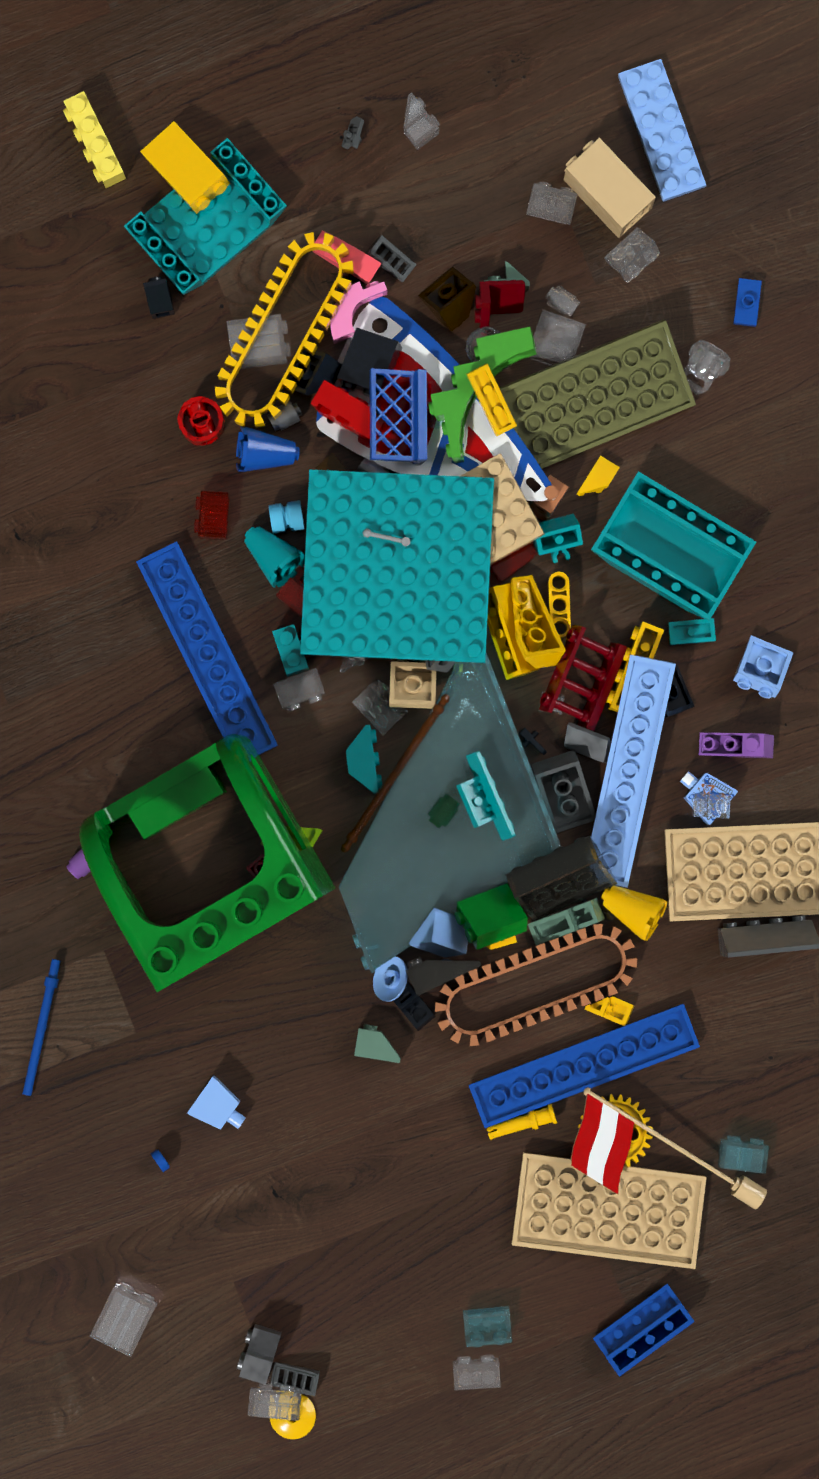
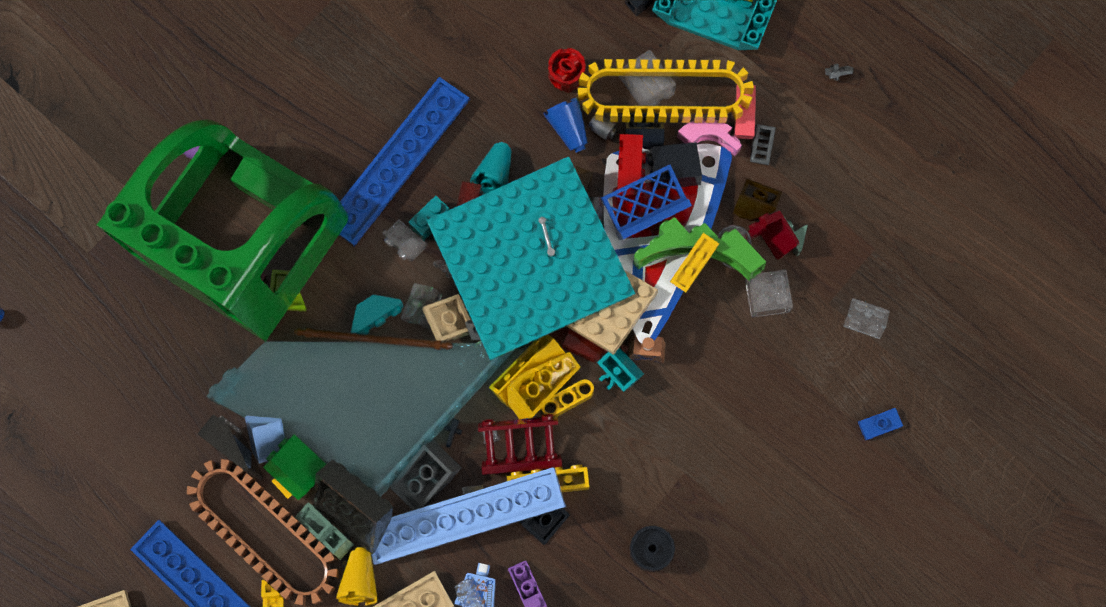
camera: 65 degrees right, 10 degrees down
(51, 982) = (95, 173): blue bar -> none
(212, 516) = (502, 113): clear red brick -> none
(217, 1105) = (56, 337): light blue torso -> none
(286, 517) = (526, 162): medium azure wheel -> none
(374, 1045) = (157, 432): sand green slope -> none
(390, 979) = (204, 415): light blue dish -> none
(414, 1007) = (199, 450): black slope -> none
(418, 124) = (872, 112): clear slope -> none
(443, 811) = (359, 387): clear green brick -> none
(483, 799) = (382, 412): teal bracket -> none
(532, 1119) = (154, 583): yellow pin -> none
(552, 203) = (871, 239): clear bracket -> none
(562, 301) = (801, 283): clear brick -> none
(587, 742) = (471, 473): flat silver slope -> none
(599, 394) = (744, 344): olive plate -> none
(599, 477) = (683, 379): yellow slope -> none
(608, 187) = (906, 272): tan brick -> none
(661, 130) = (973, 292): light blue plate -> none
(673, 547) = (658, 461): teal slope -> none
(691, 631) = (601, 512): teal plate -> none
(707, 364) = (815, 415): clear piece -> none
(746, 609) = (648, 560): none -> black wheel
(762, 667) = (602, 582): light blue plate -> none

